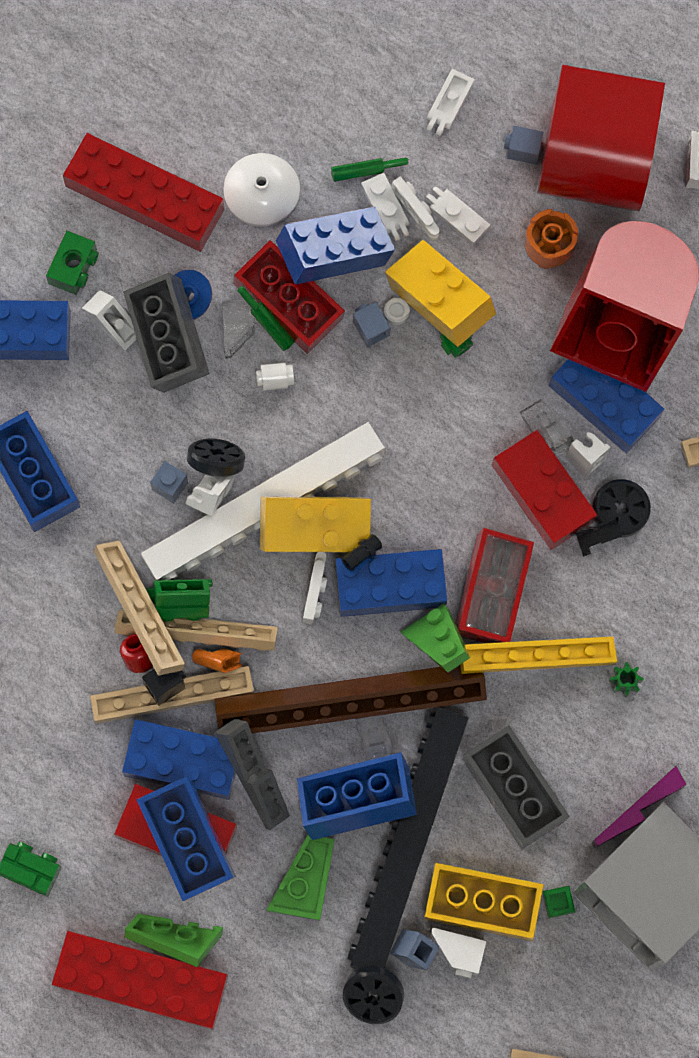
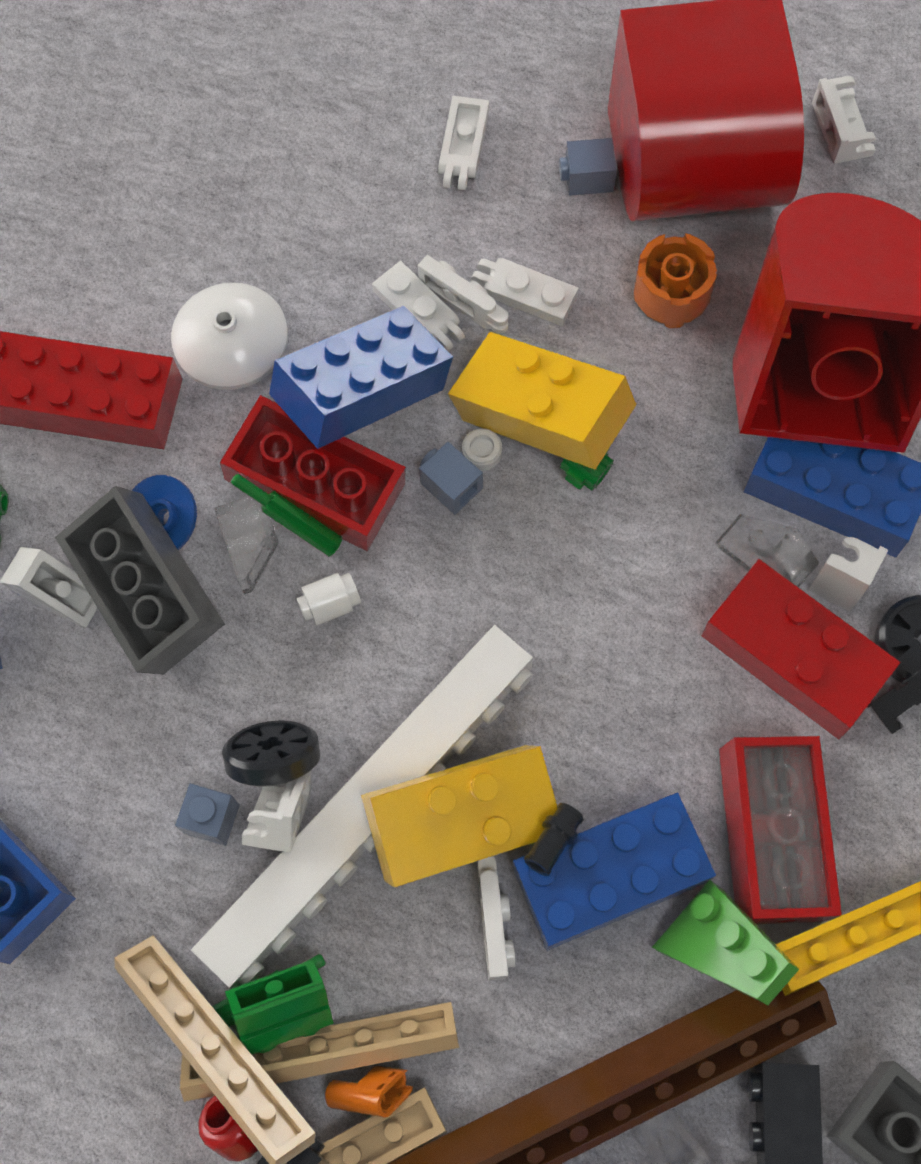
camera: 10 degrees left, 5 degrees down
(364, 168) = (370, 263): green axle -> none

